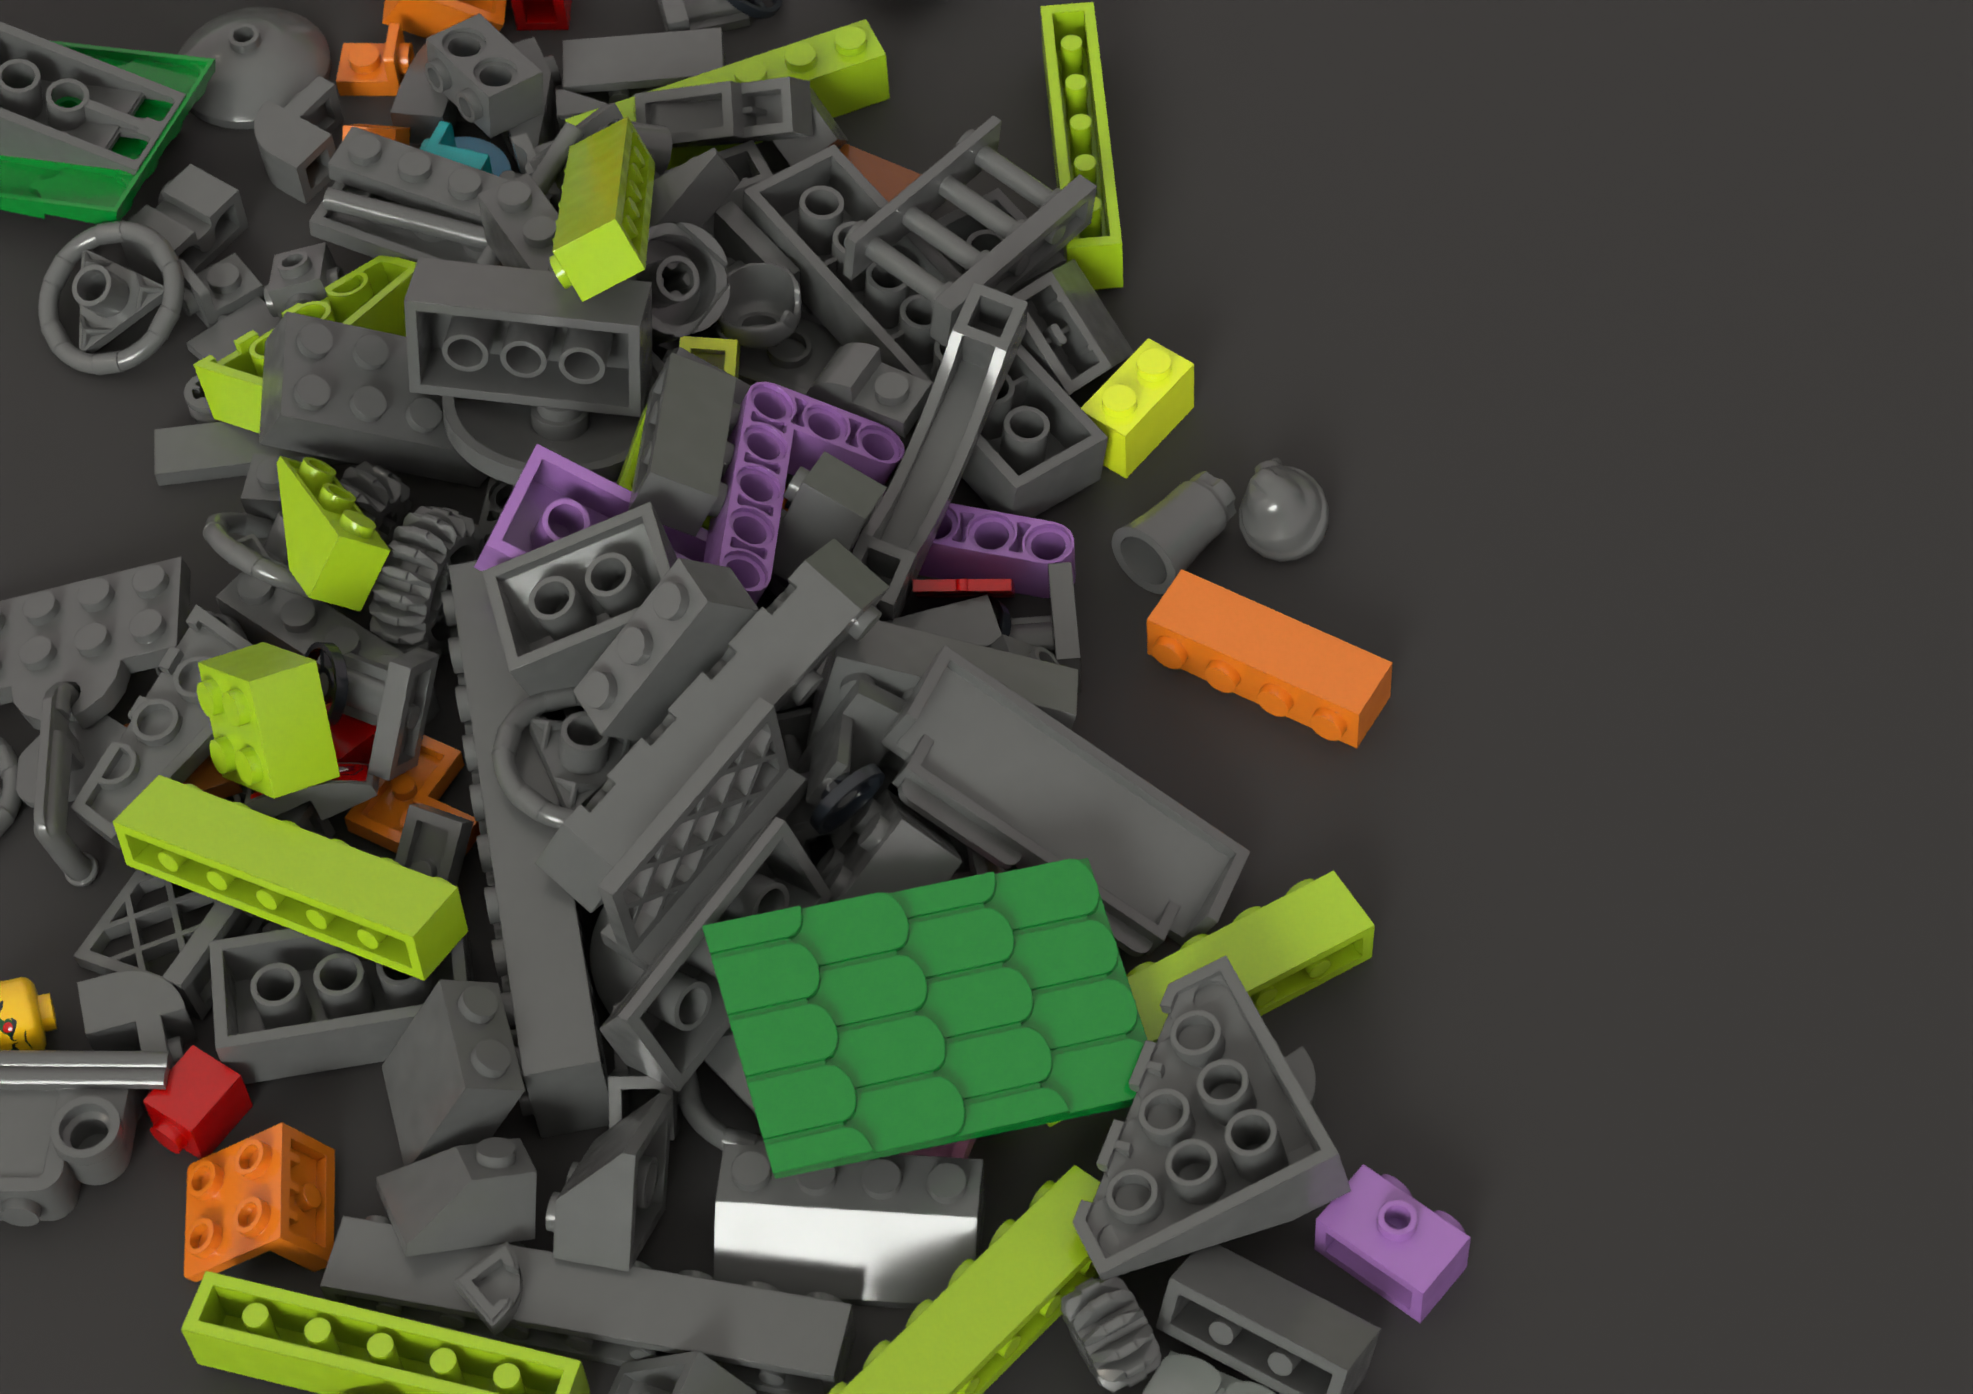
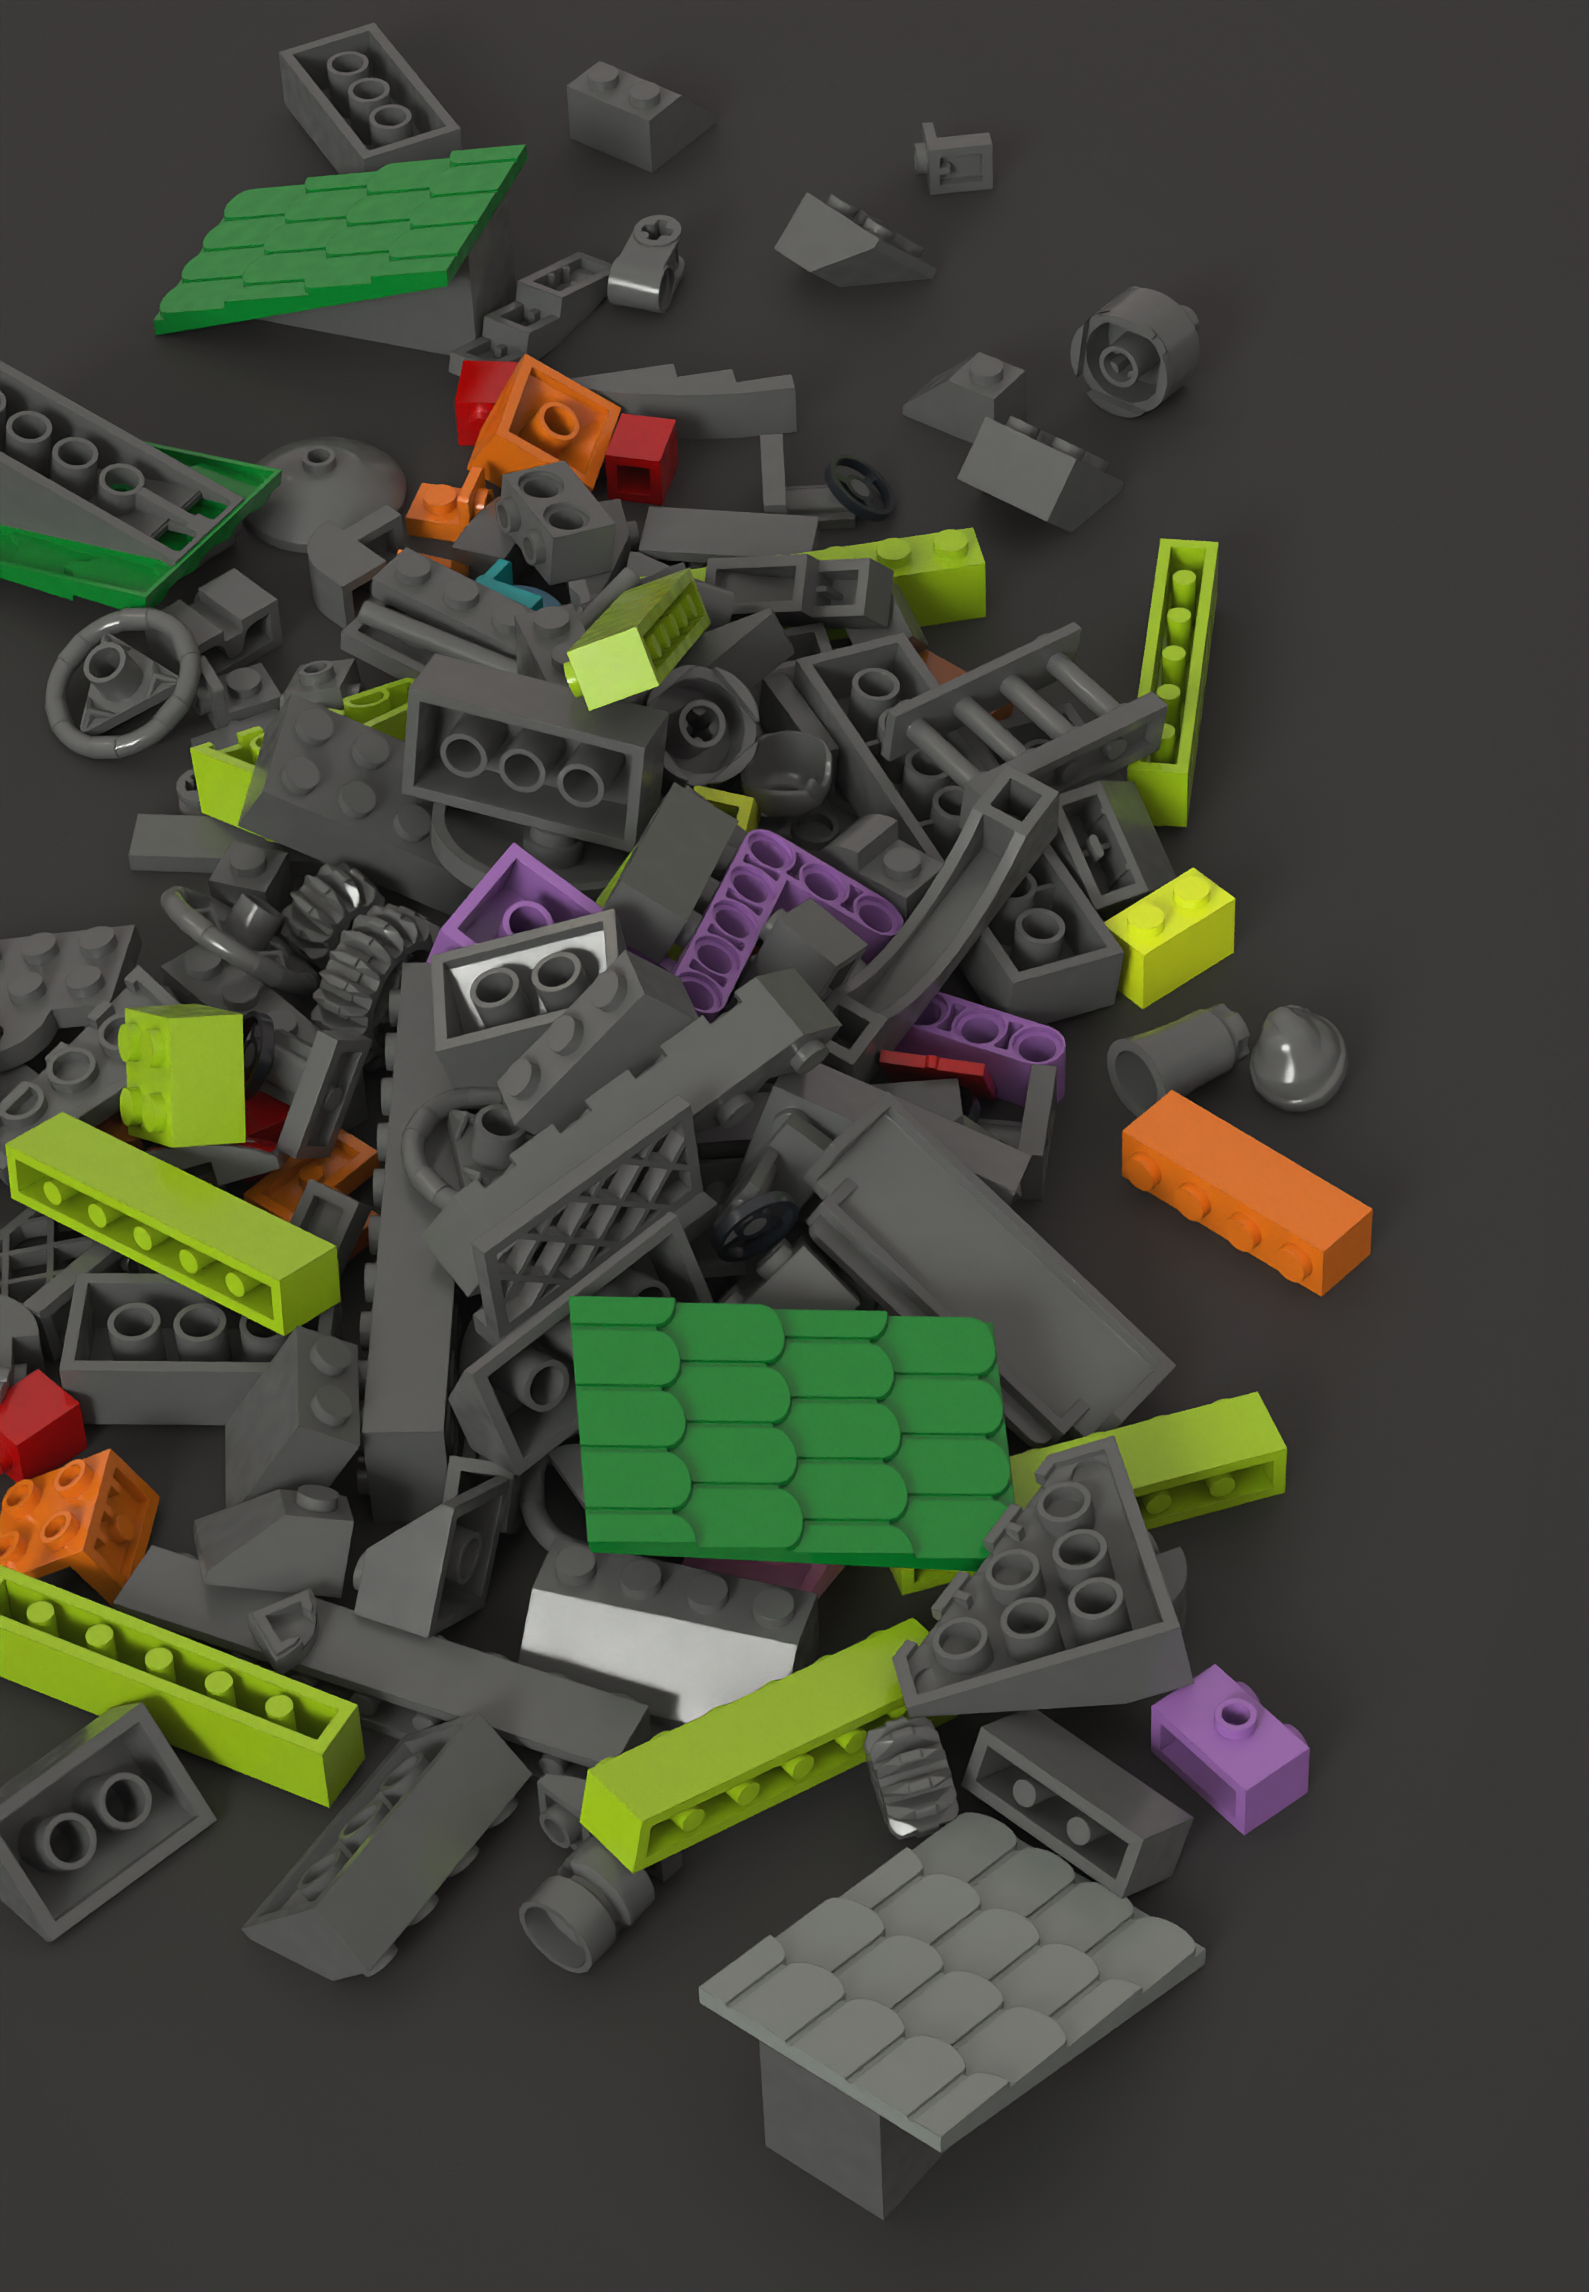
camera: 10 degrees right, 10 degrees down
(327, 536) = (286, 917): lime slope -> none

